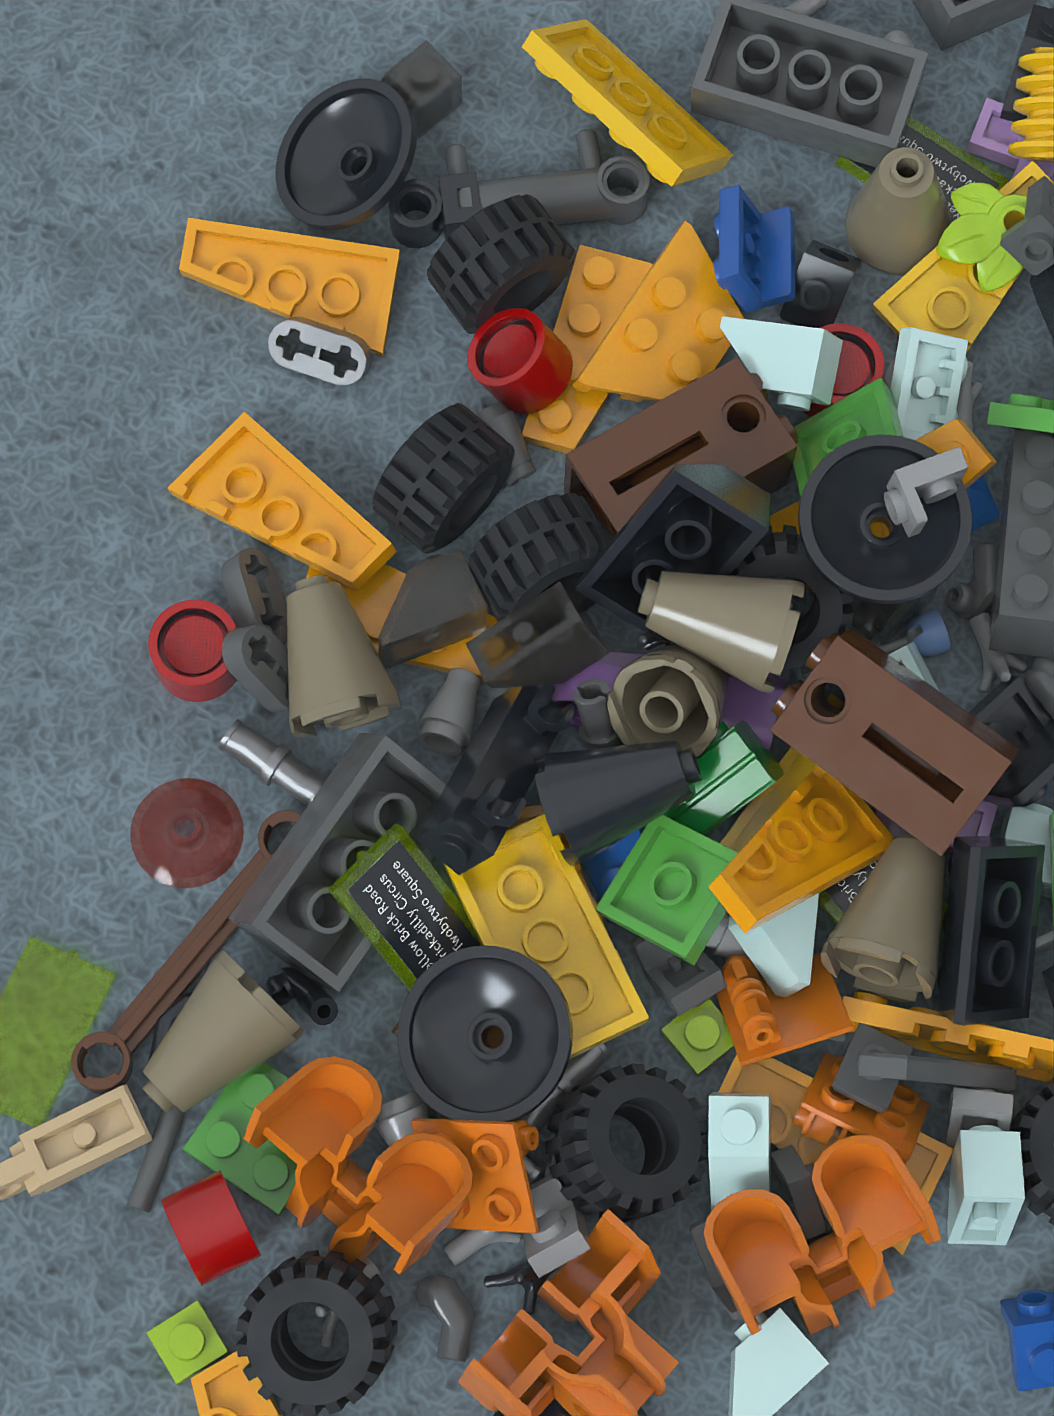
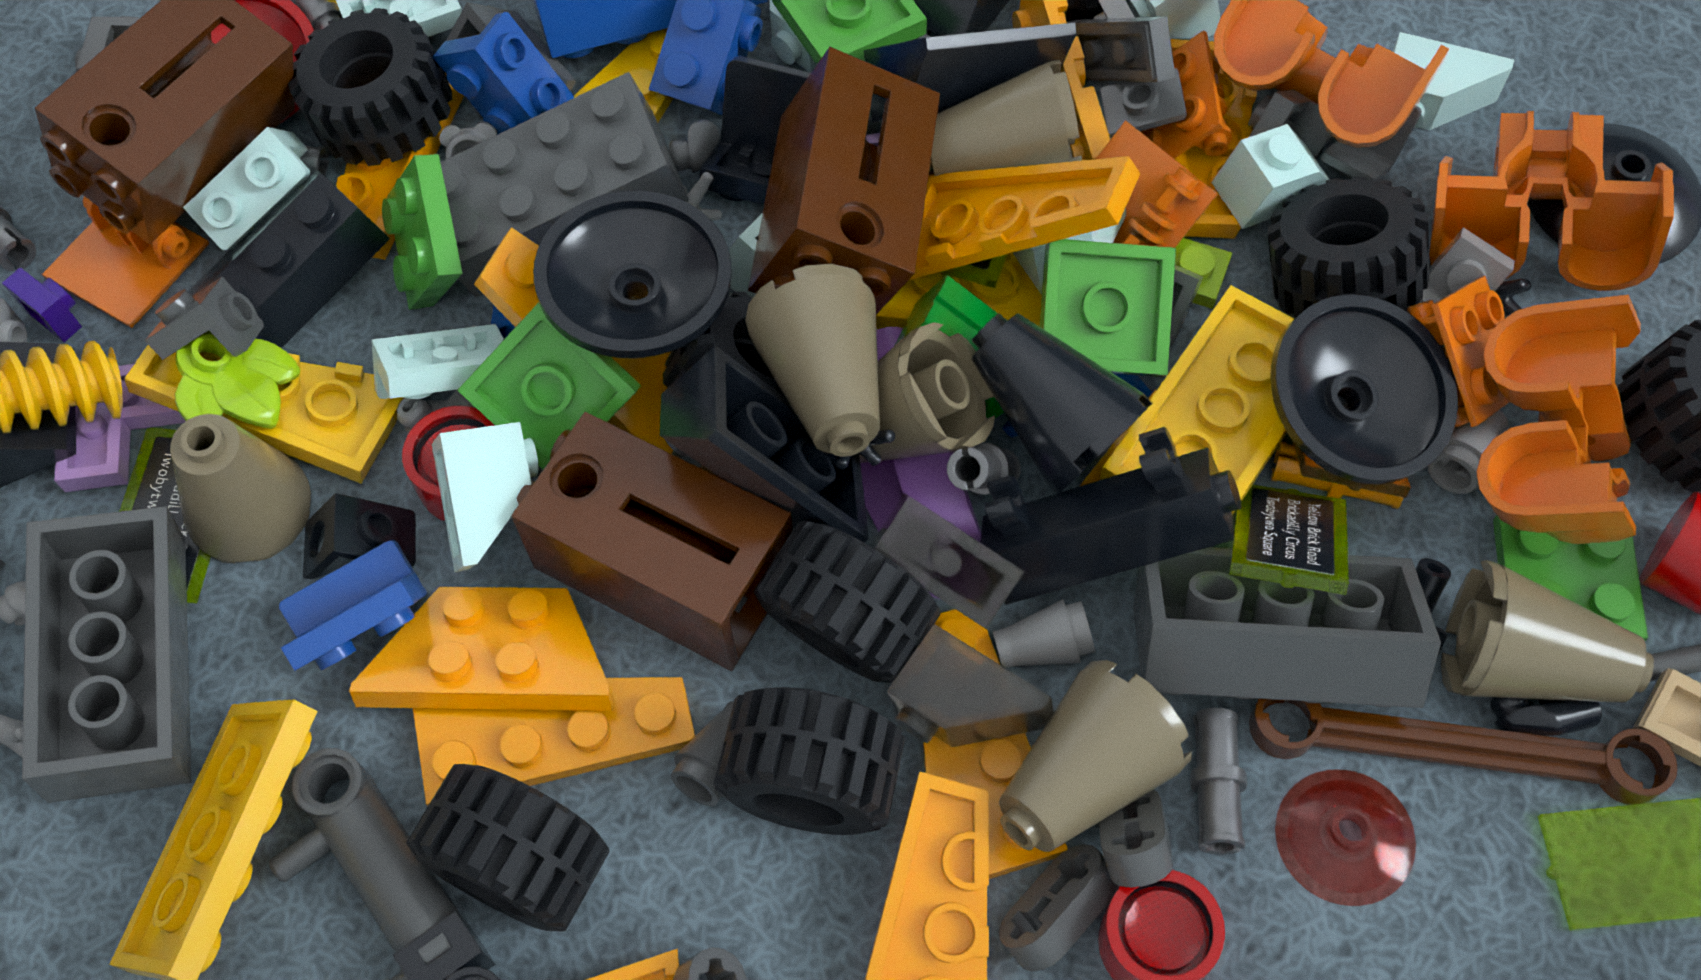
camera: 115 degrees left, 10 degrees down
(520, 360) = (615, 772): red piece -> none
(931, 479) = (584, 235): light grey bracket -> none

